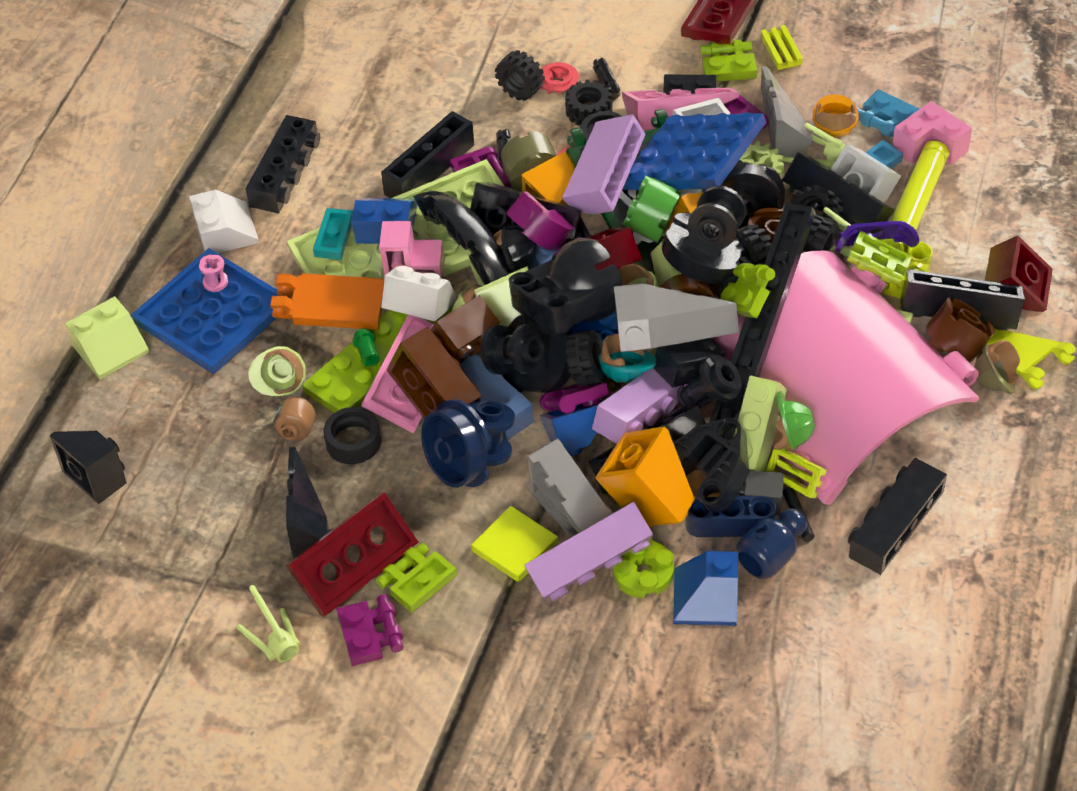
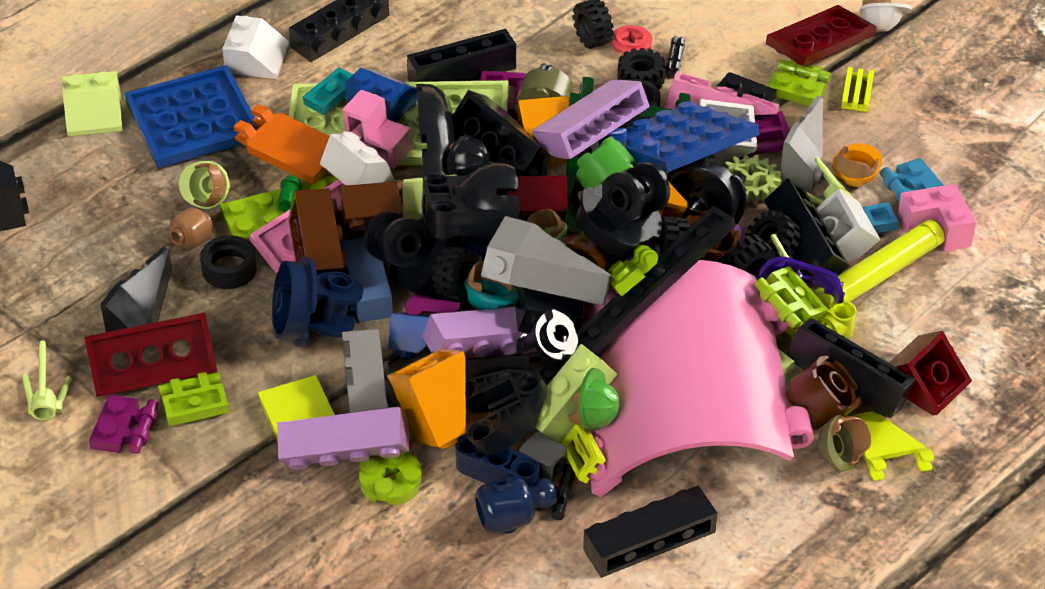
camera: 25 degrees right, 5 degrees down
(211, 274) = (212, 83): bright pink bush -> none
(540, 225) = (494, 143): magenta brick -> none
(707, 589) = (432, 519): blue slope -> none

